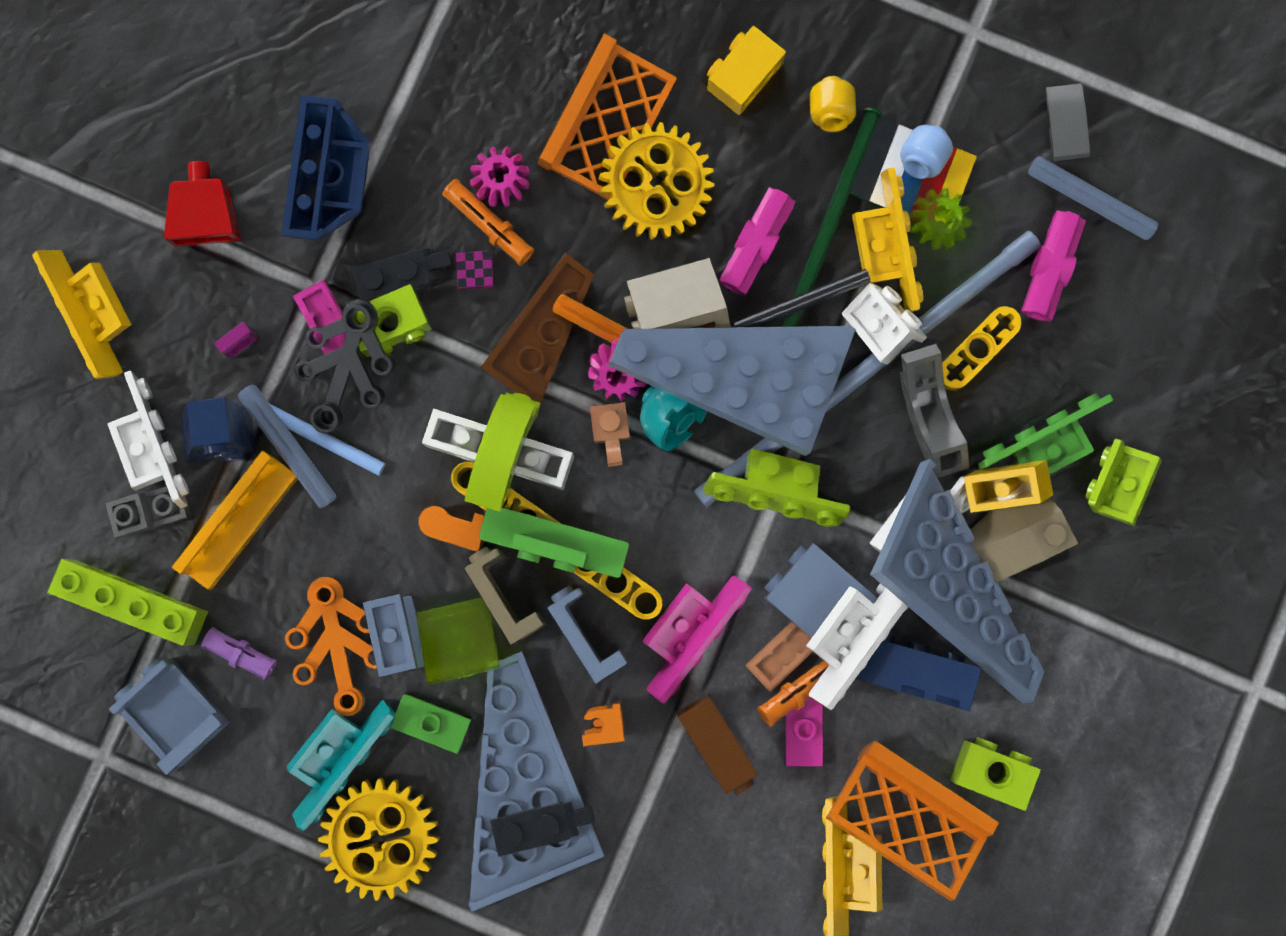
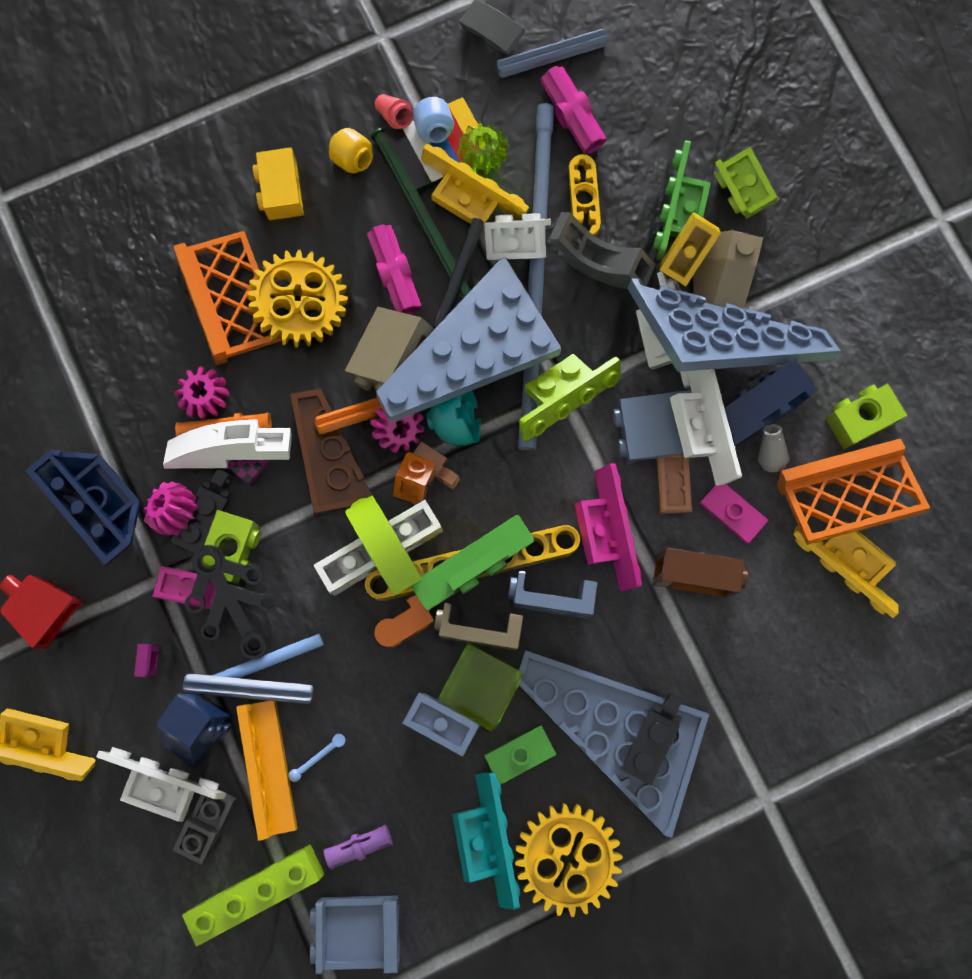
camera: 50 degrees left, 5 degrees down
(310, 559) = (337, 741): none -> light blue hinge
(334, 639) = (407, 771): orange plant -> none
(377, 243) = (170, 508): none -> dark pink gear
(474, 237) = (225, 441): none -> white slope
(585, 424) = (413, 478): none -> orange bracket
(612, 721) = (627, 633): orange hinge -> none
(774, 709) = (707, 516): orange pin -> none
(888, 718) = (773, 449): none -> light grey cone
(905, 109) = (395, 111): none -> coral cone

